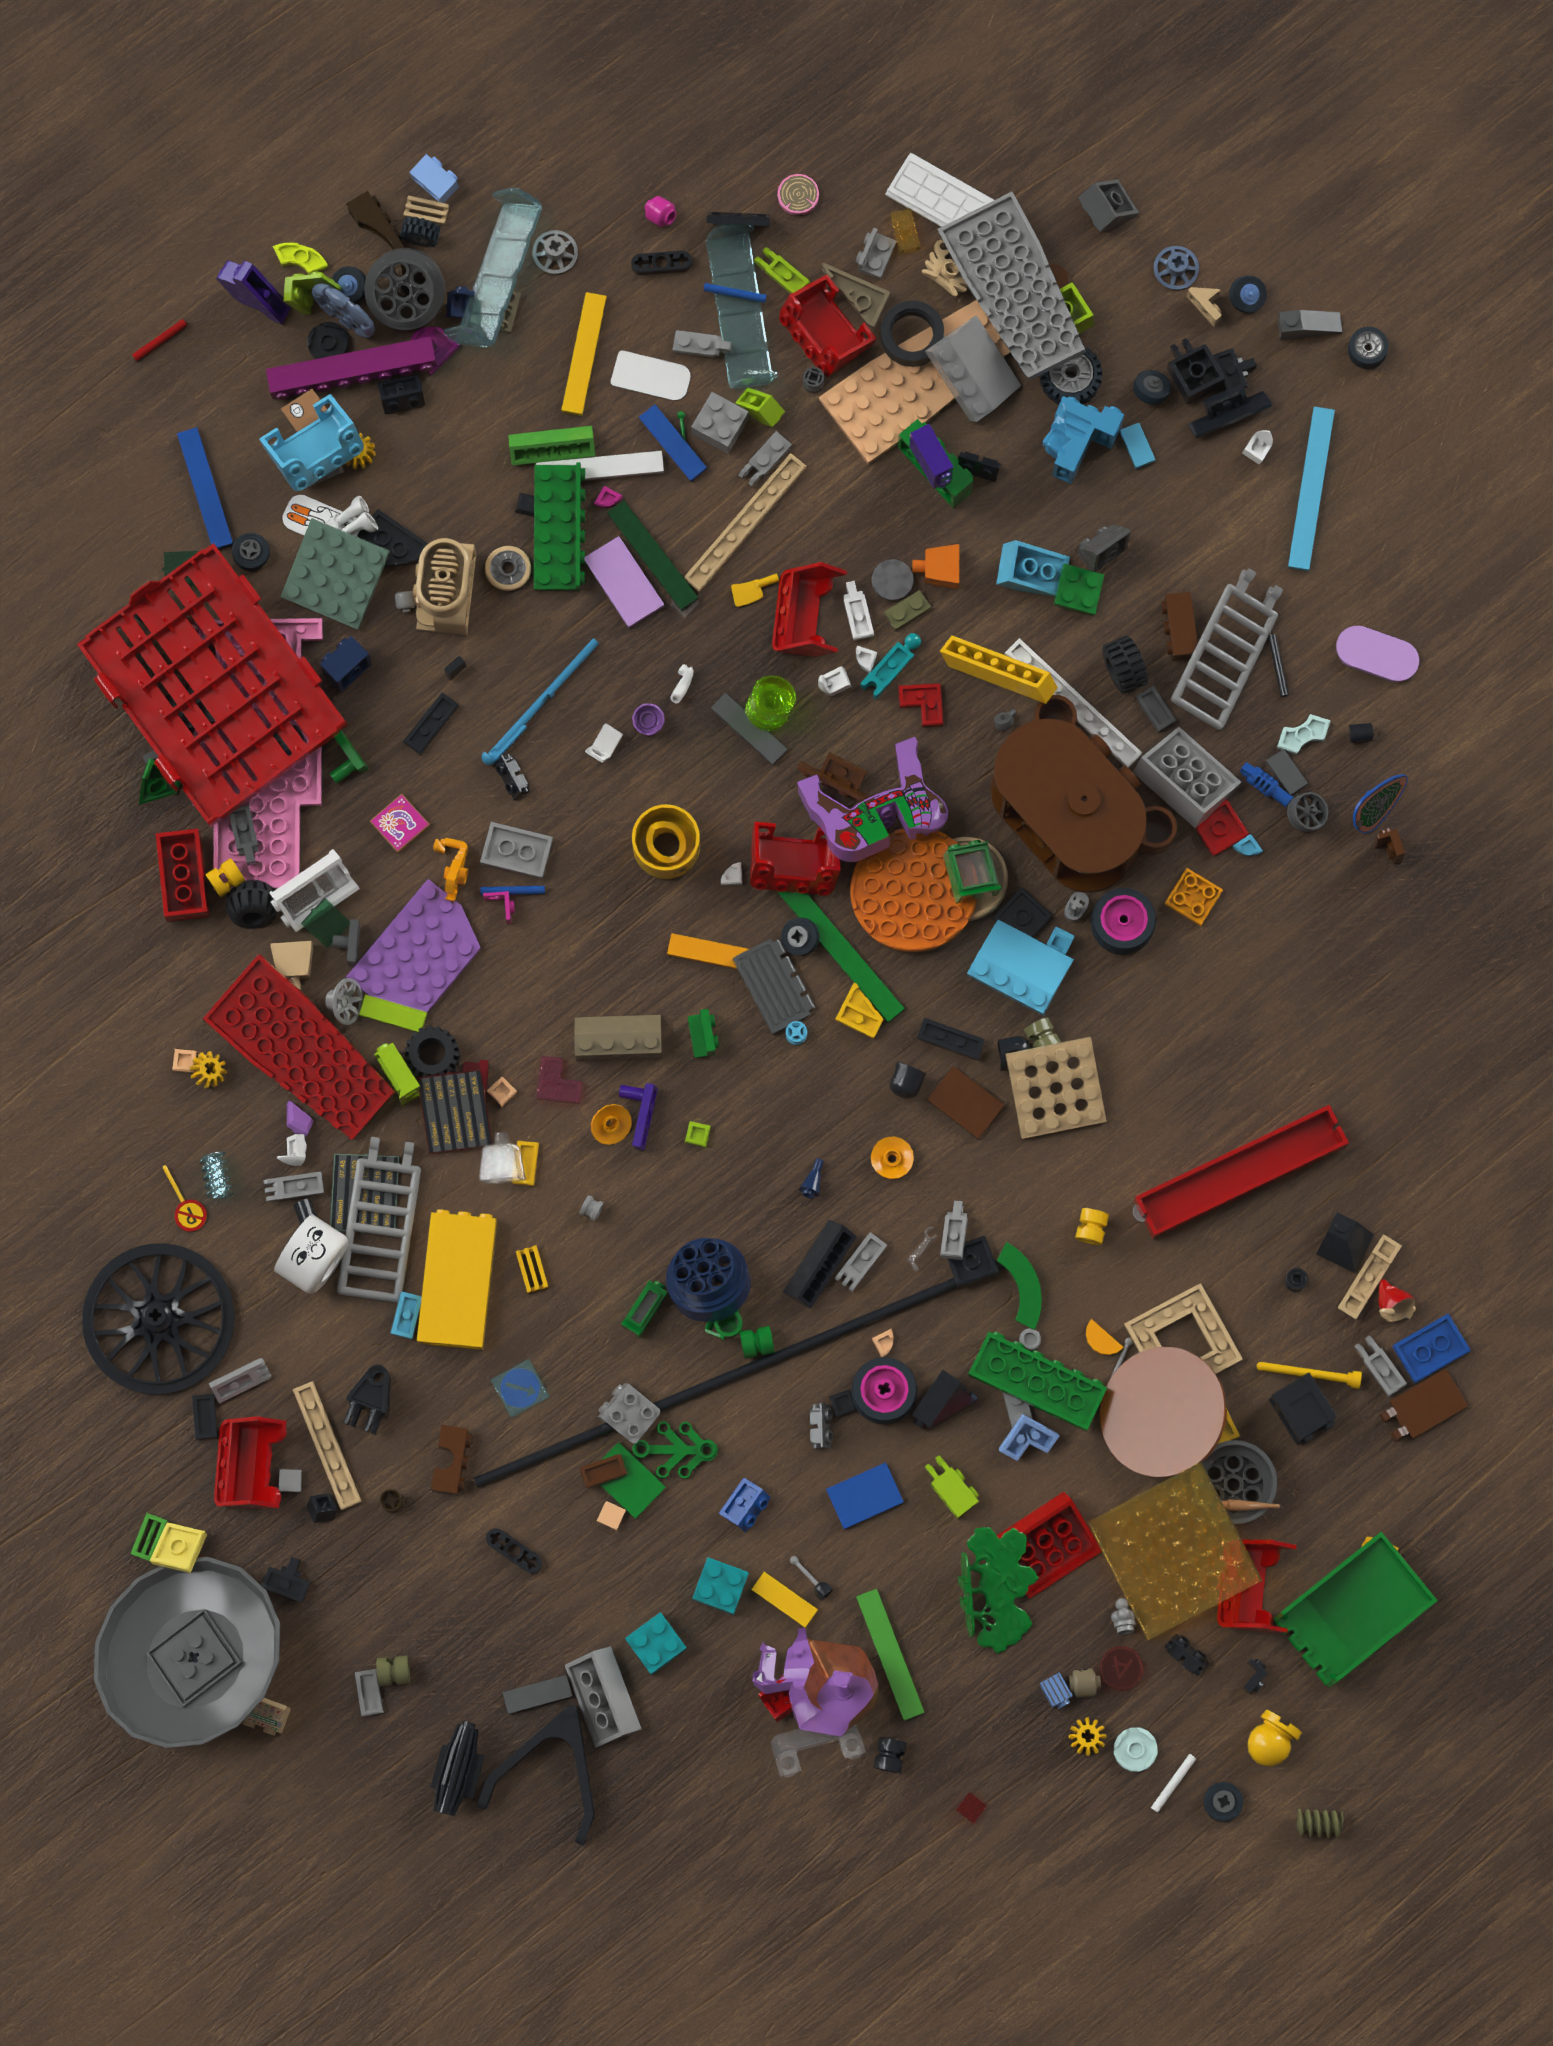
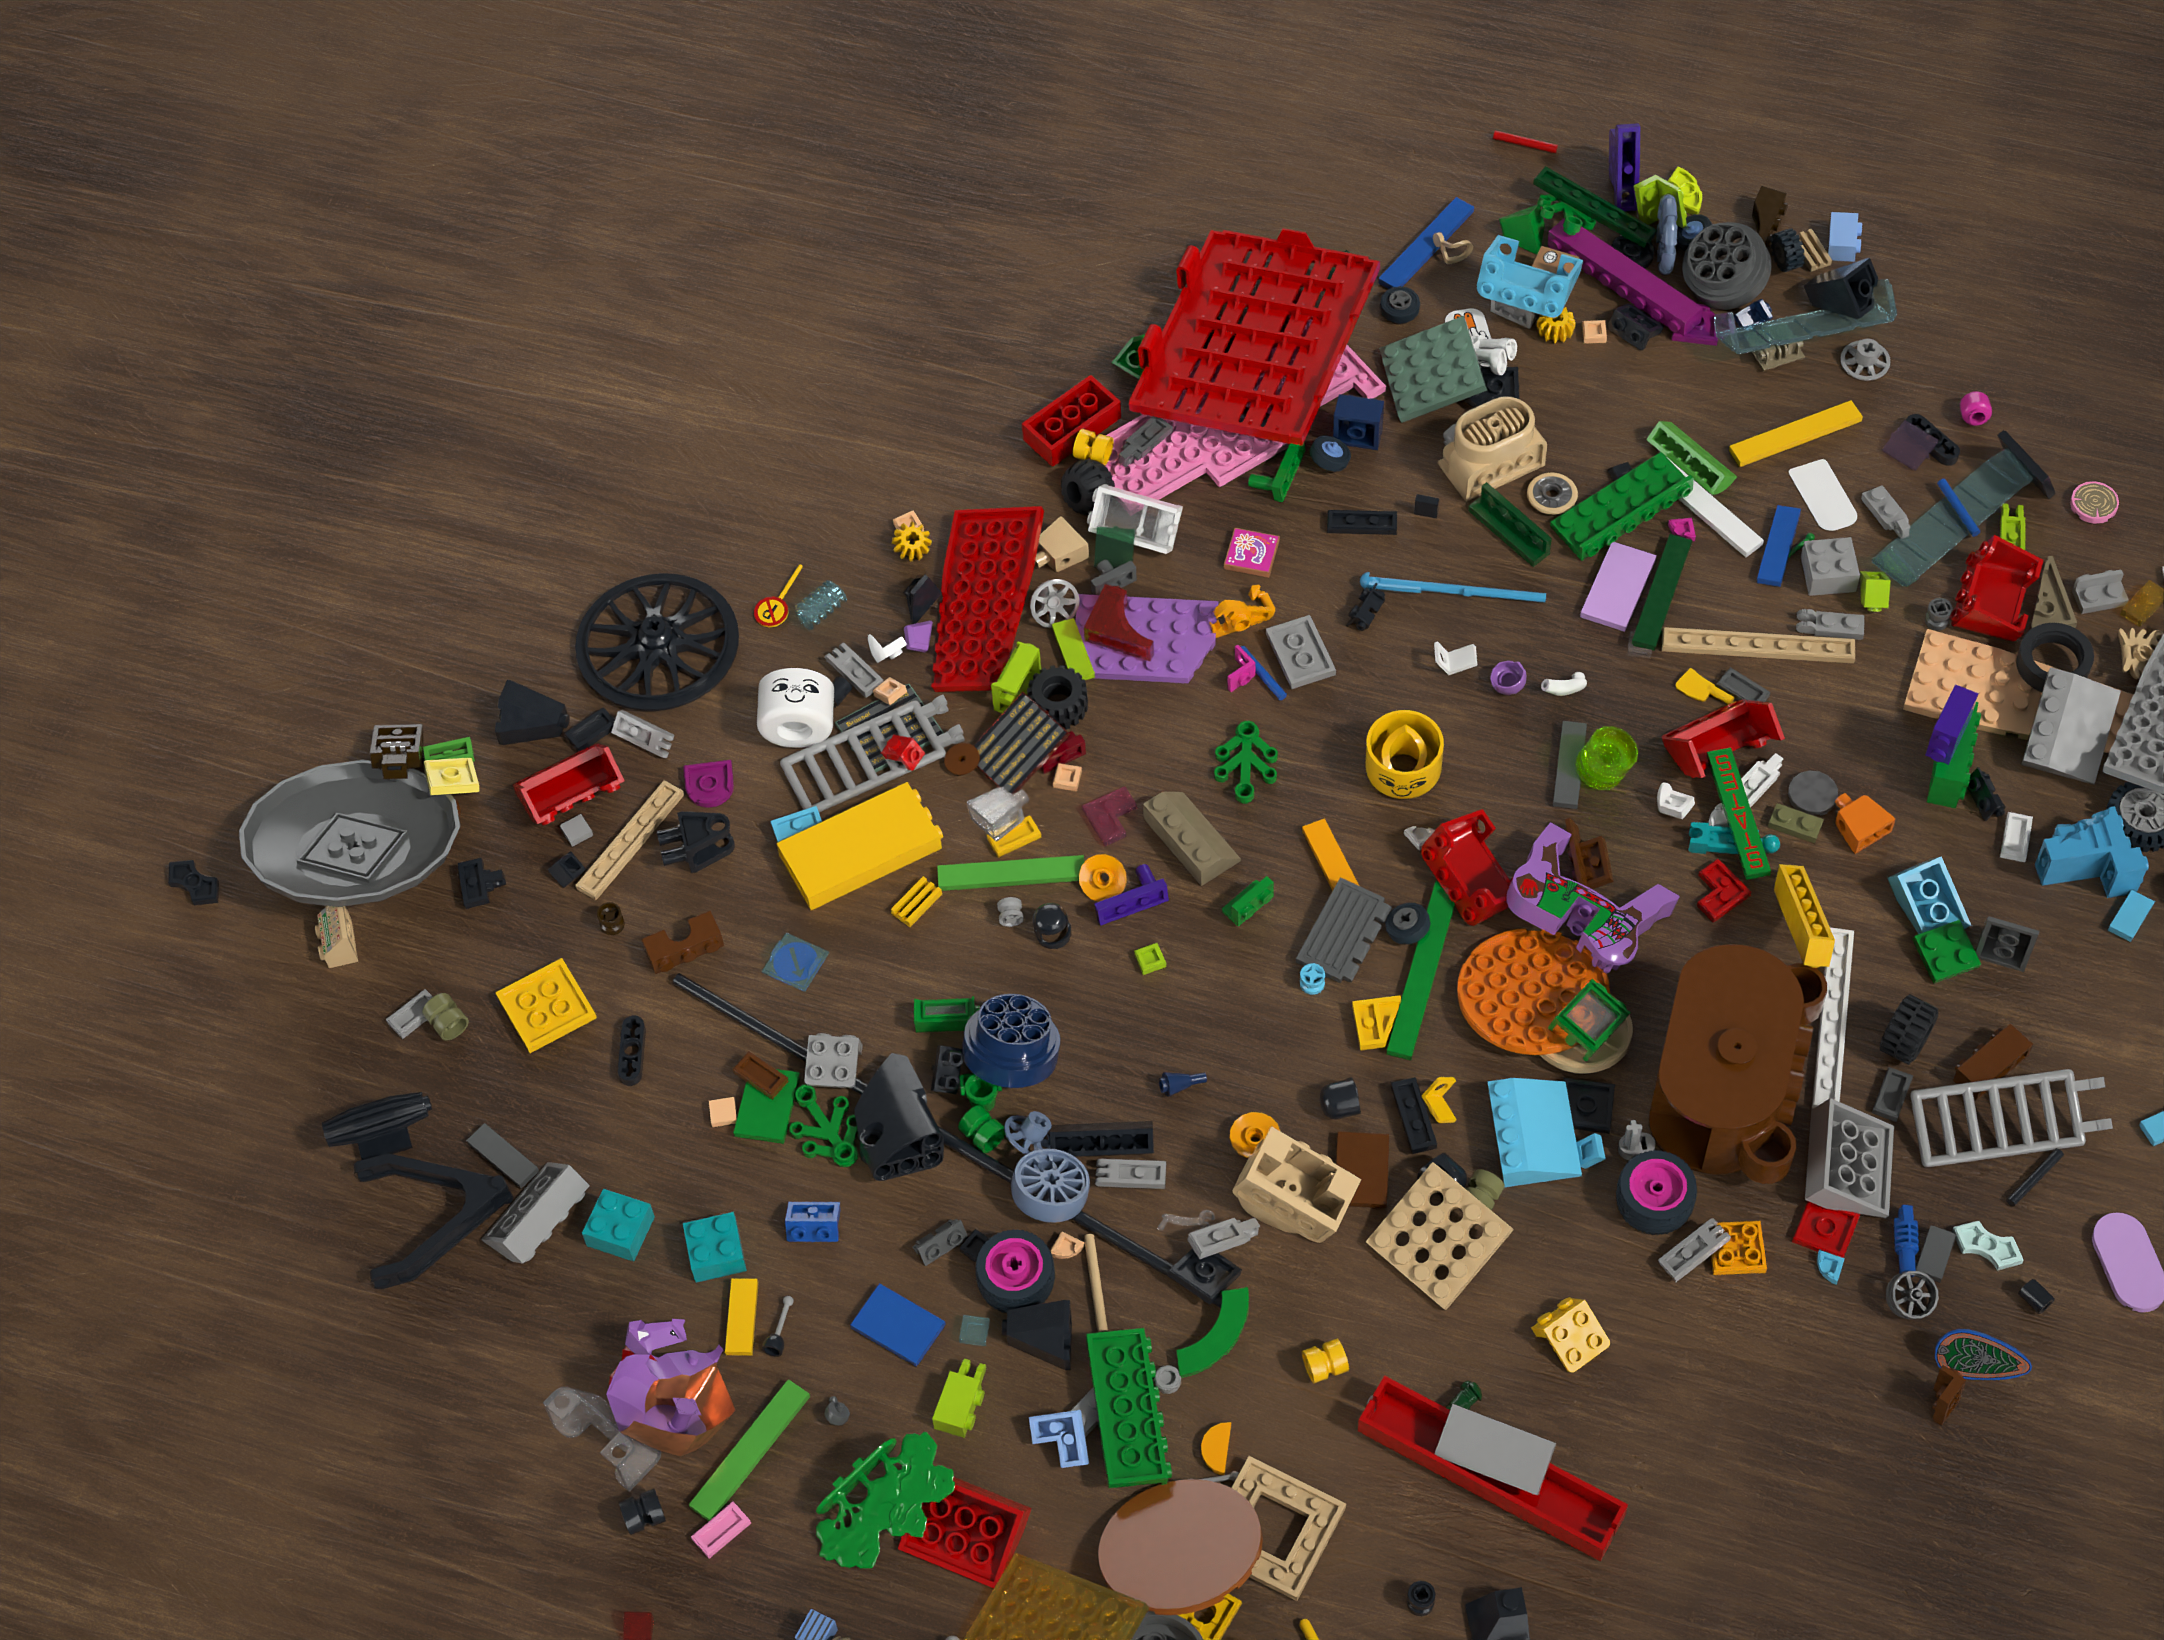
camera: 60 degrees right, 20 degrees down
(120, 1799) = (201, 888): none -> black tile
(124, 1575) = (396, 749): none -> dark brown piece
(164, 1456) = (528, 715): none -> black slope
(215, 479) = (1439, 241): none -> tan piece
(236, 352) = (1571, 224): none -> green plant
(247, 405) = (1526, 227): none -> green slope
(262, 1095) = (920, 596): none -> black slope
(271, 340) = (1594, 207): none -> dark green tile
(317, 1357) = (709, 783): none -> magenta tile
(333, 1172) = (889, 691): none -> light nougat tile
(355, 703) = (1330, 453): none -> black wheel
(382, 426) = (1594, 331): none -> light nougat tile
(401, 974) = (1110, 628): none -> clear red arch
(401, 1198) = (903, 750): none -> red bracket
(432, 1158) = (962, 758): none -> reddish brown piece
(432, 1591) = (546, 1005): none -> yellow plate
(490, 221) = (1845, 289): none -> black slope
(516, 620) = (1510, 525): none -> dark green fence
(555, 1186) = (1009, 873): none -> bright green tile
(580, 952) = (1246, 759): none -> green plant
(624, 1186) = (1050, 920): none -> black helmet
(656, 283) = (1910, 445): none -> clear purple piece
(692, 1336) = (947, 1069): none -> black hips
(710, 1398) = (896, 1124): none -> black panel
(774, 562) = (1742, 687): none -> dark grey tile
(784, 1308) = (1032, 1130): none -> sand blue wheel
(831, 1327) = (1053, 1177): none -> sand blue piece
(877, 645) = (1738, 813): none -> green tile
(904, 1446) = (974, 1330): none -> clear light blue tile
(904, 1578) = (836, 1412): none -> dark grey piece
(926, 1341) = (1095, 1282): none -> tan piece
(935, 1709) = (721, 1530): none -> bright pink tile
(955, 1017) = (1435, 1101): none -> yellow bracket
(959, 1160) = (1295, 1187): none -> tan brick
(1024, 471) = (2016, 837): none -> white tile
(1179, 927) = (1694, 1249): none -> light grey hinge
(1180, 1050) = (1572, 1333): none -> yellow bracket
(1181, 1158) = (1468, 1395): none -> dark green arm
(1236, 1162) = (1495, 1449): none -> light grey tile

